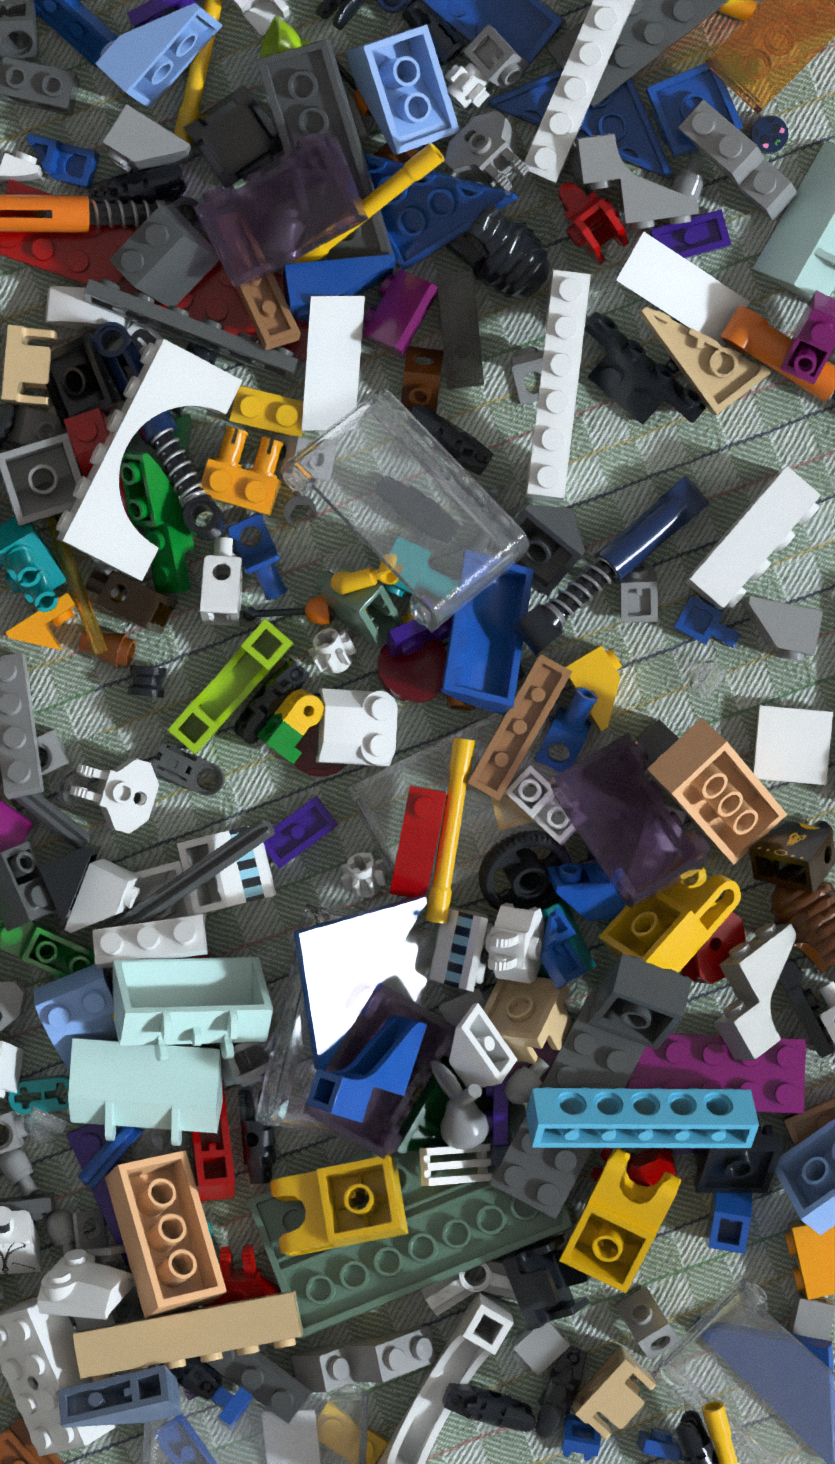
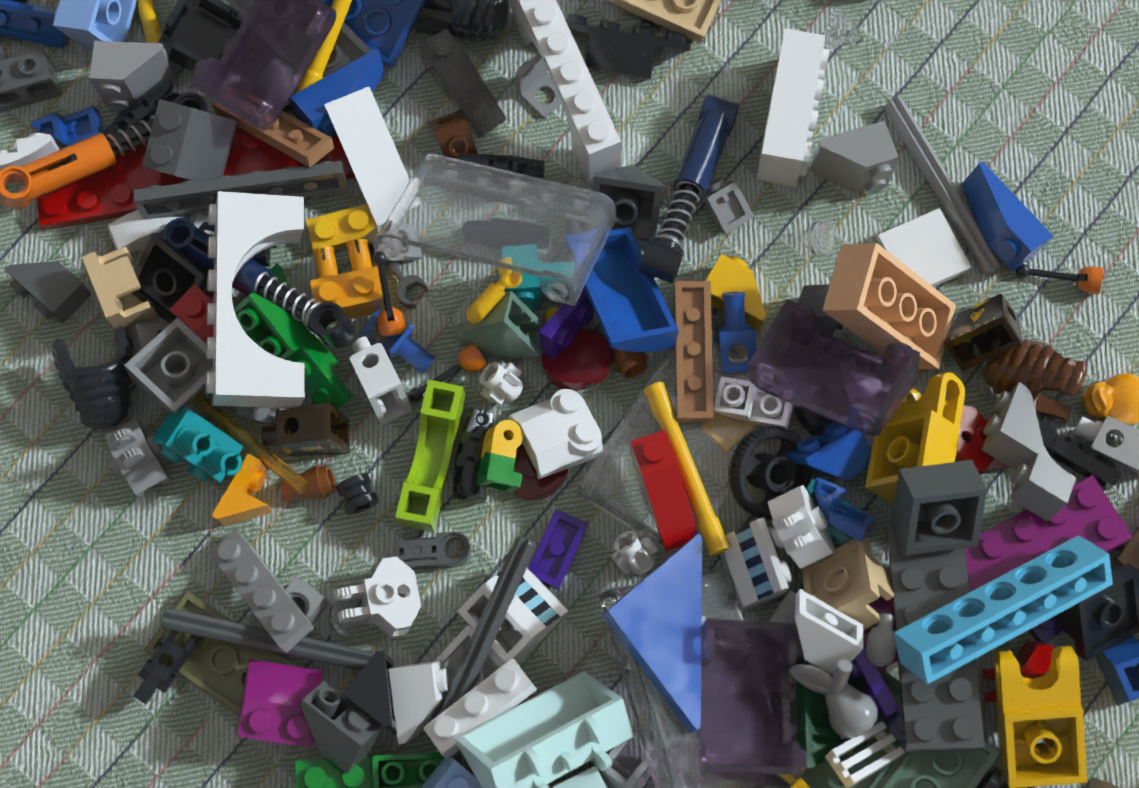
camera: 25 degrees left, 15 degrees down
(266, 530) = (390, 319): none -> hinge
(382, 1064) = (748, 695): blue arch -> none
(400, 312) = (406, 92): magenta slope -> none
(702, 621) = (790, 198): blue plate -> none

